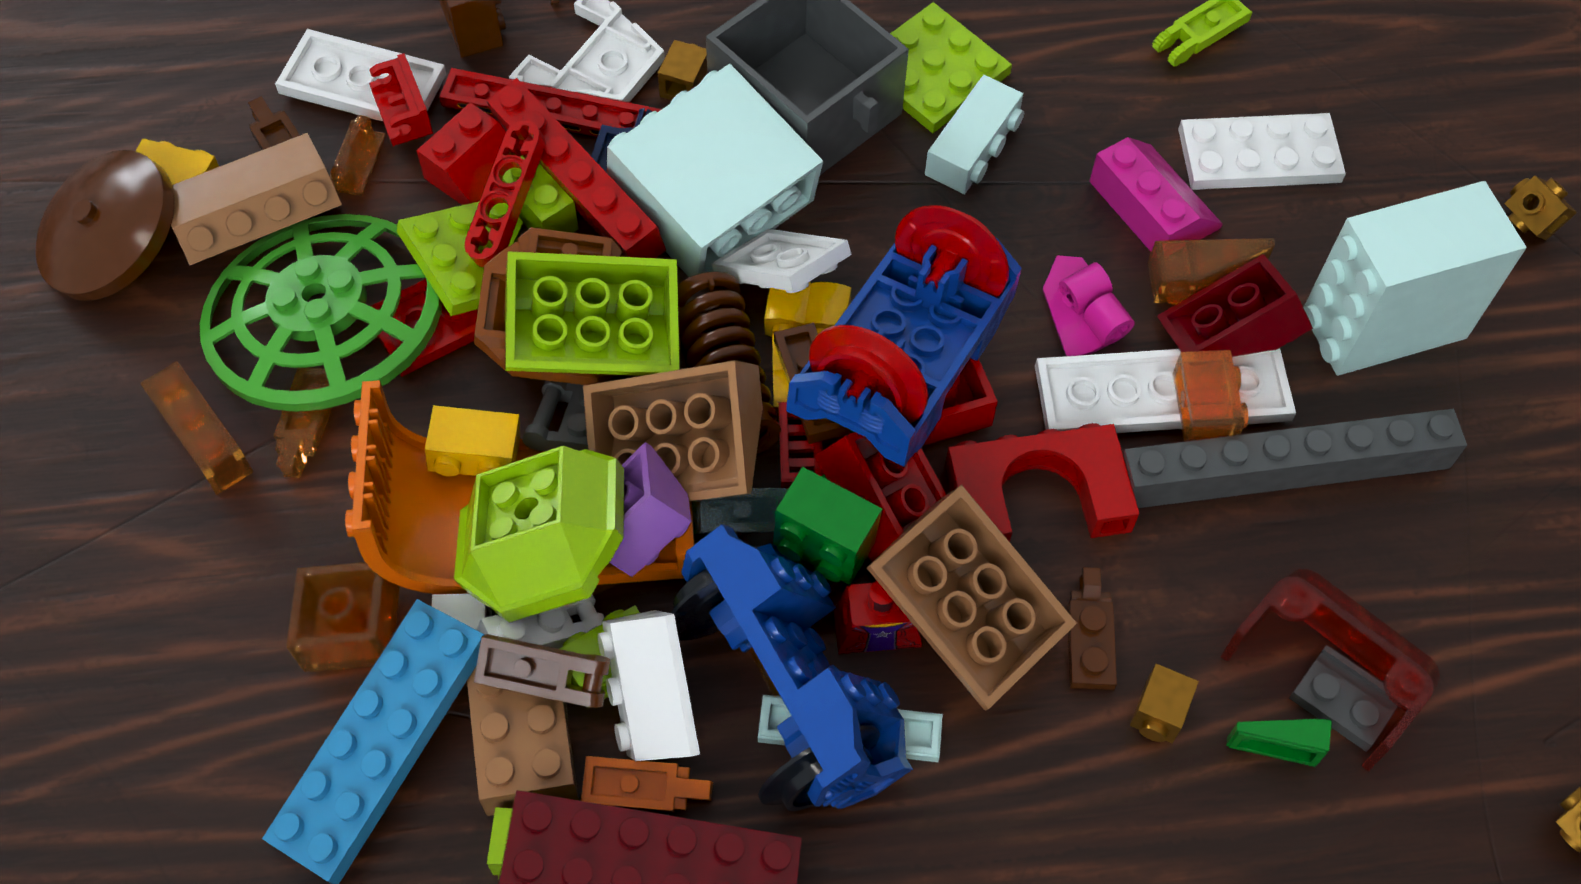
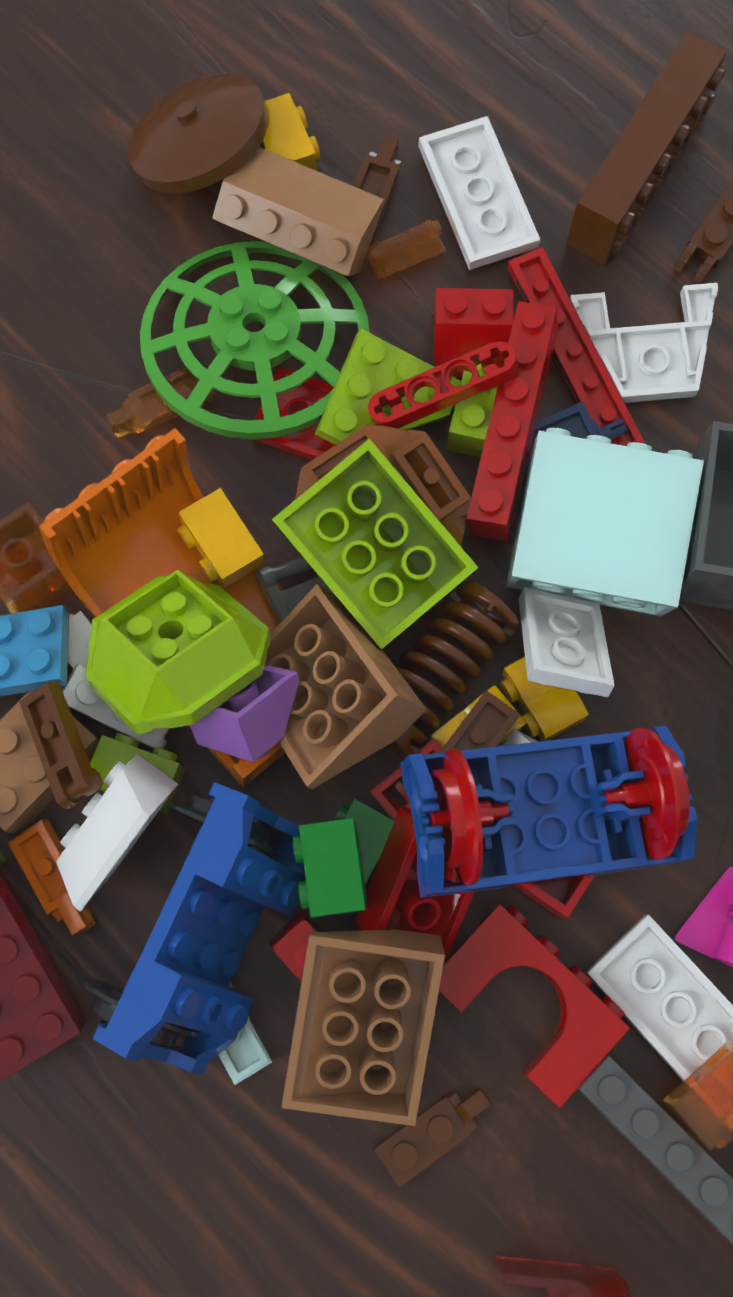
camera: 55 degrees right, 15 degrees up
(197, 427) = (94, 337): clear orange brick -> none
(400, 101) = (474, 238): red hinge -> none
(681, 69) = (688, 420): pearl gold brick -> none
(743, 513) = (325, 802): clear light blue slope -> none
(1164, 704) = (406, 1241): pearl gold brick -> none

